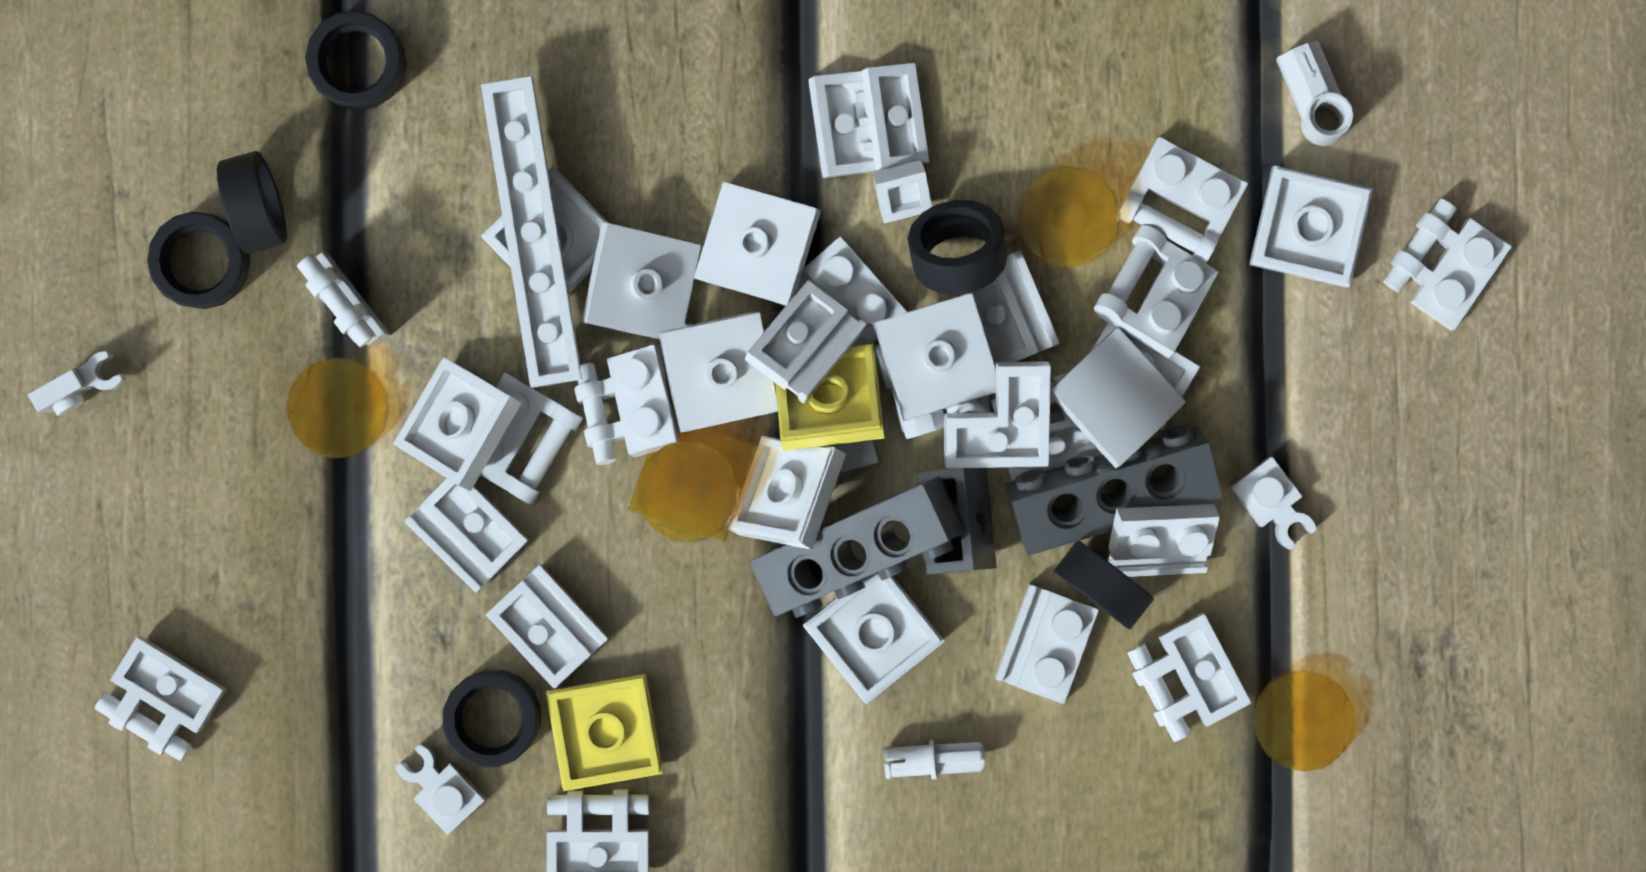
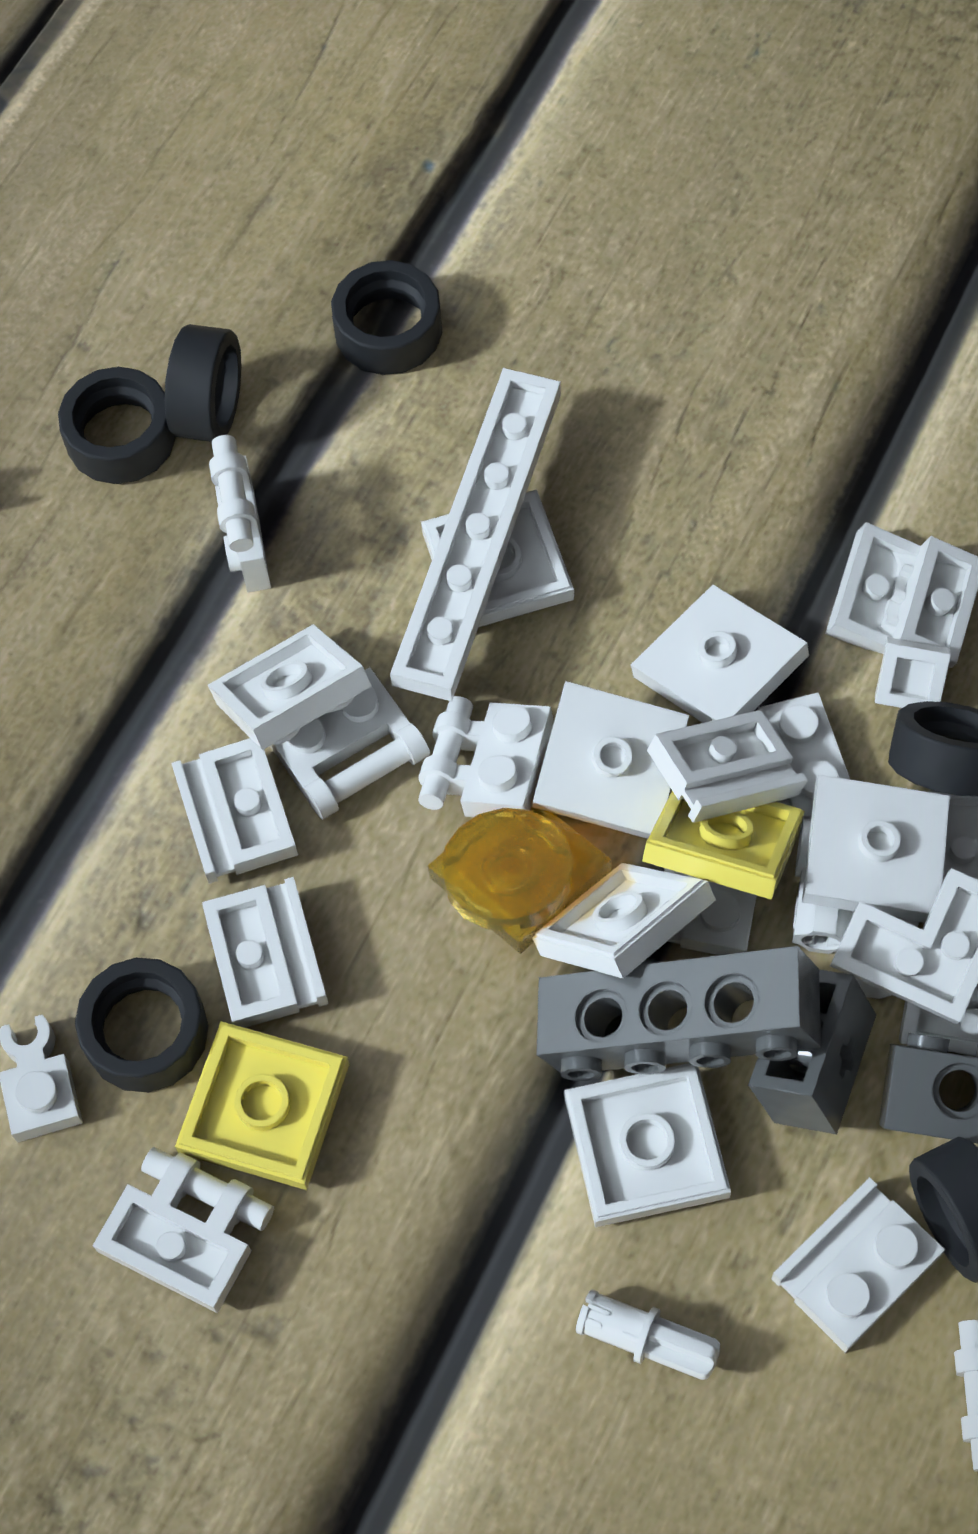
camera: 30 degrees right, 25 degrees down
(337, 408) = (171, 629): clear yellow tile -> none
(640, 281) = (569, 633): white plate -> none

